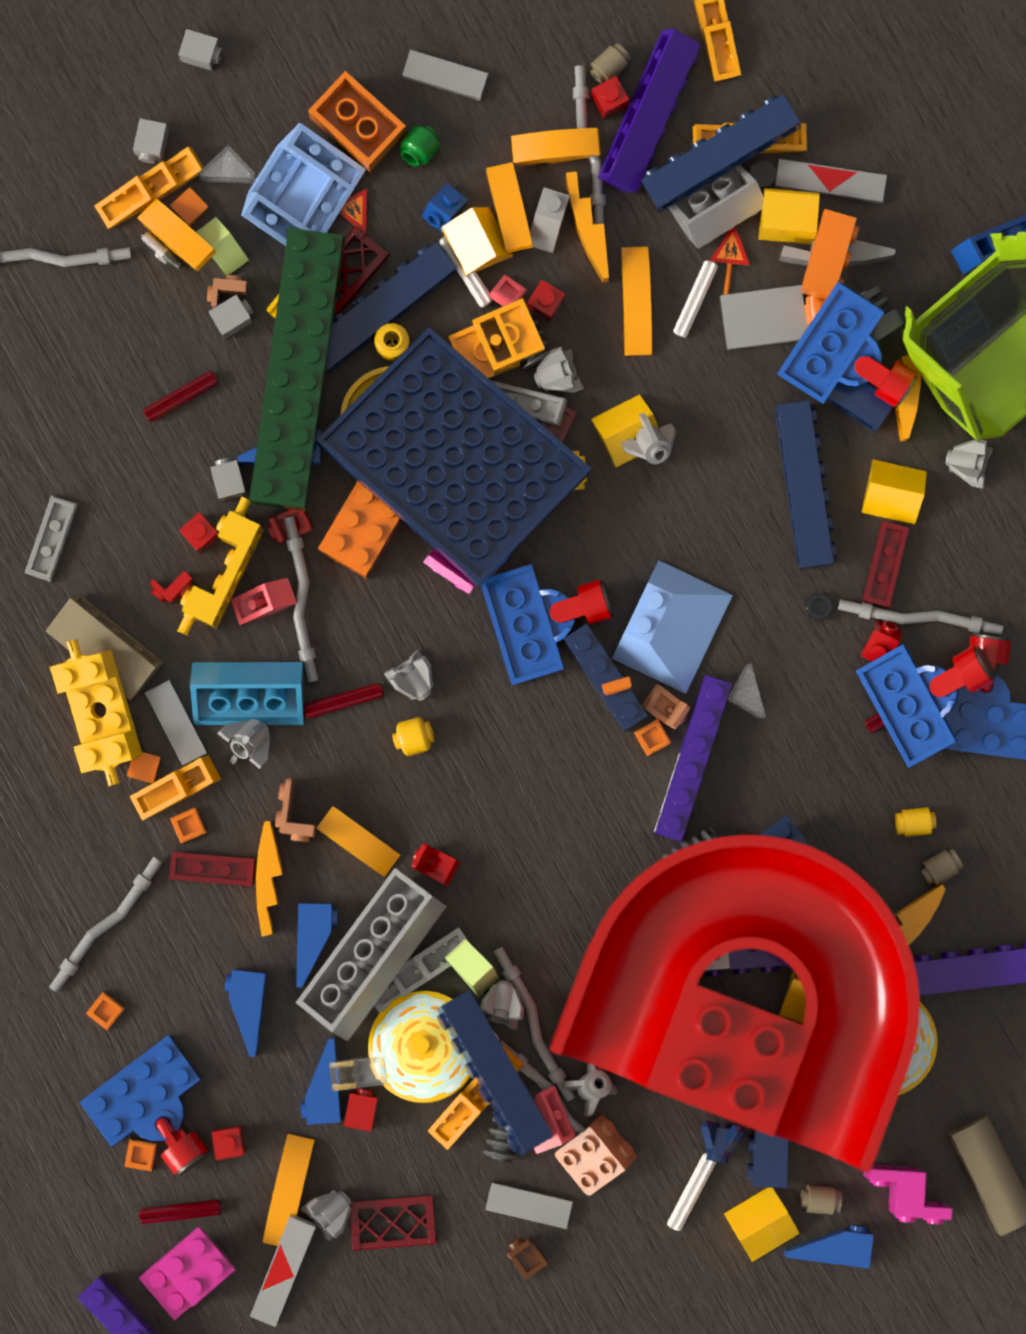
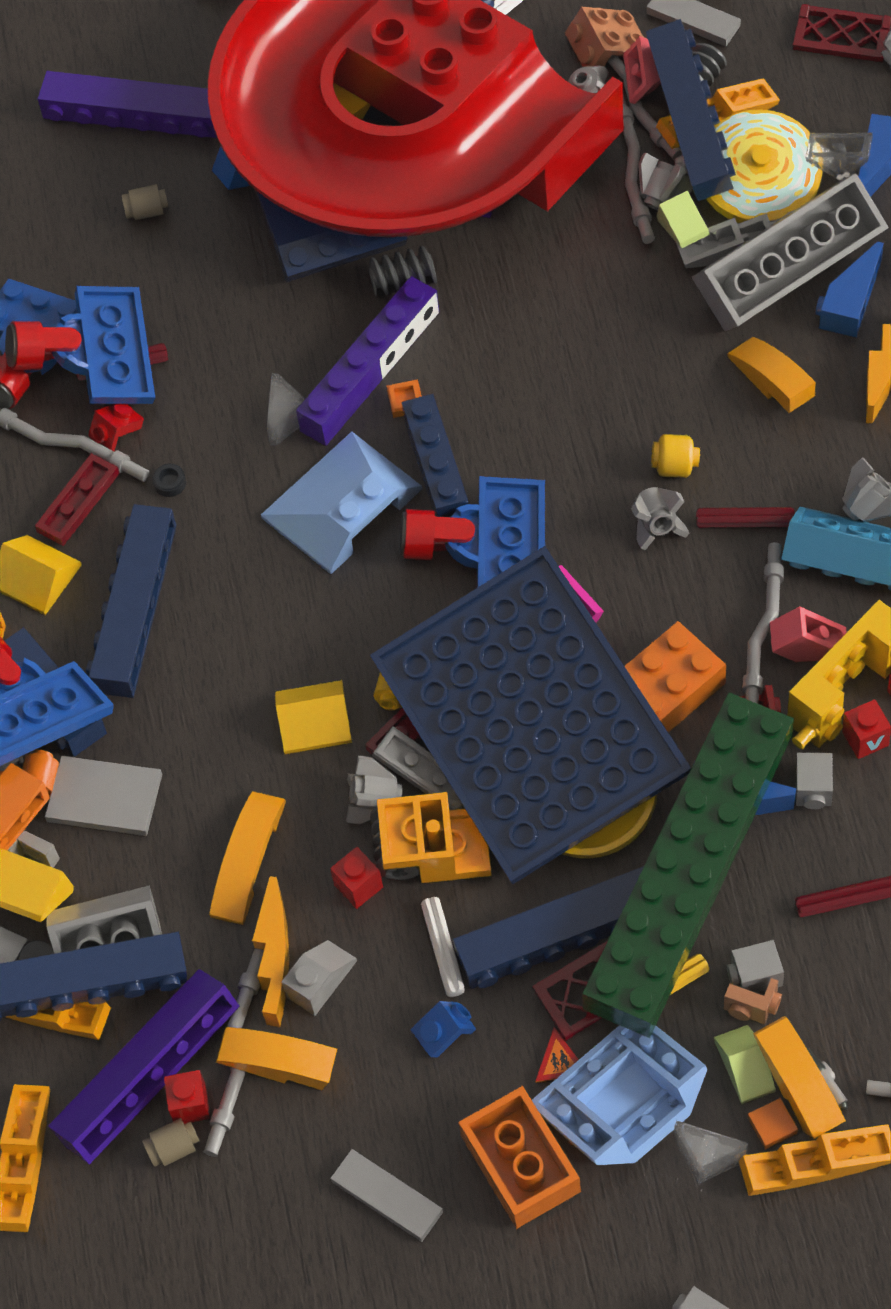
camera: 150 degrees left, 25 degrees down
(150, 140) = (801, 1217): light grey brick -> none
(298, 832) = (839, 392): nougat bracket -> none
(361, 1109) = (847, 119): red brick -> none
(391, 332) = (561, 876): yellow head -> none
(419, 145) = (448, 1107): green head -> none
(435, 864) = (690, 329): red bracket -> none
(476, 240) = (415, 970): slope -> none
(507, 291) = (400, 903): coral tile -> none
(509, 207) = (362, 998): light orange slope -> none
(616, 686) = (425, 425): orange tile -> none
(651, 442) = (289, 675): light grey brick -> none
(666, 707) = (376, 416): nougat bracket -> none
(695, 298) = (175, 838): white axle -> none
(730, 252) = (115, 880): piece -> none
(915, 822) = (154, 249): yellow brick -> none
(918, 913) = (188, 166): light orange slope -> none

